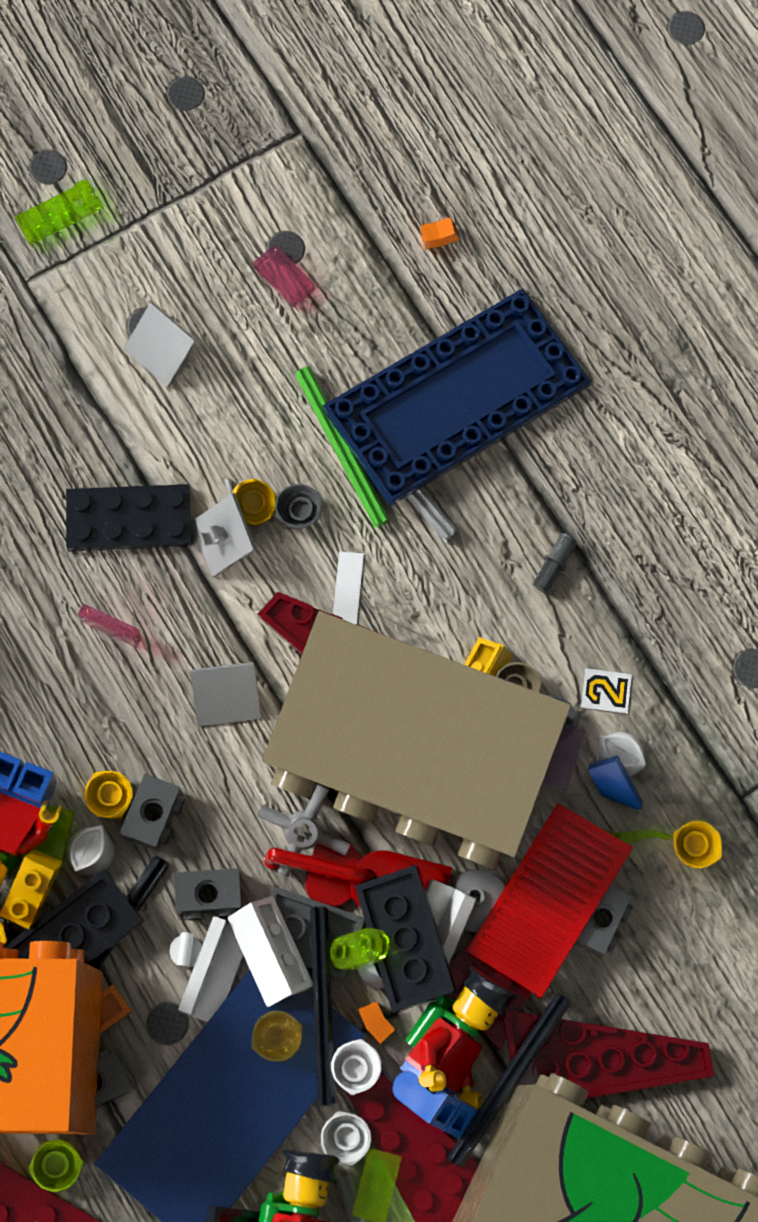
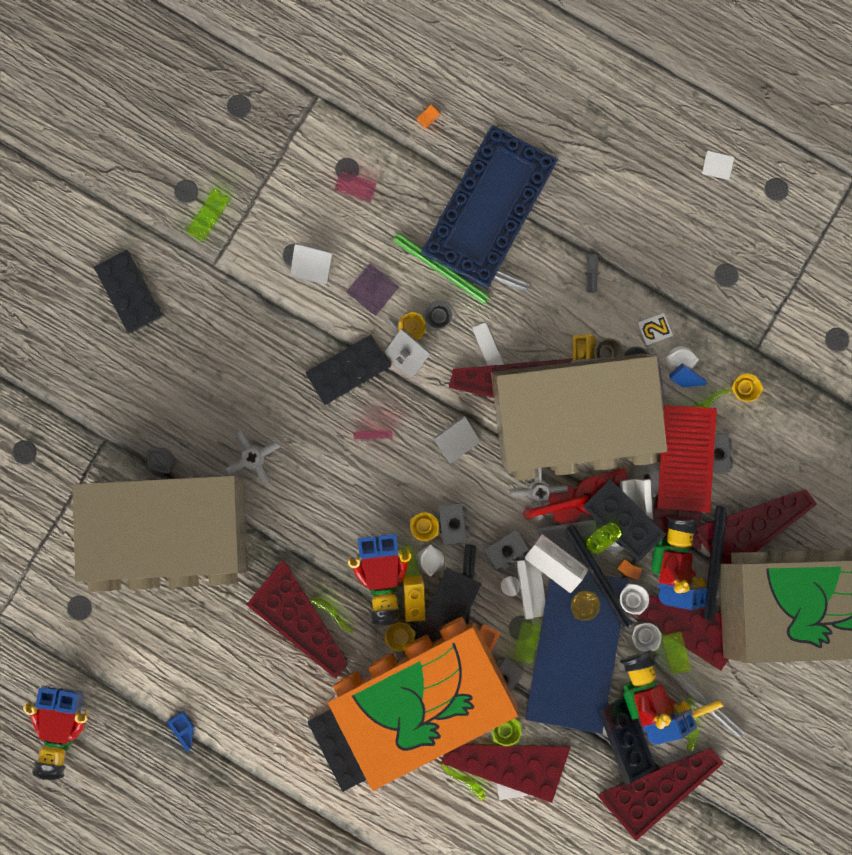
camera: 30 degrees left, 10 degrees up
(162, 1049) = (526, 642): none -> clear neon green tile
(228, 426) = (372, 289): none -> clear purple piece

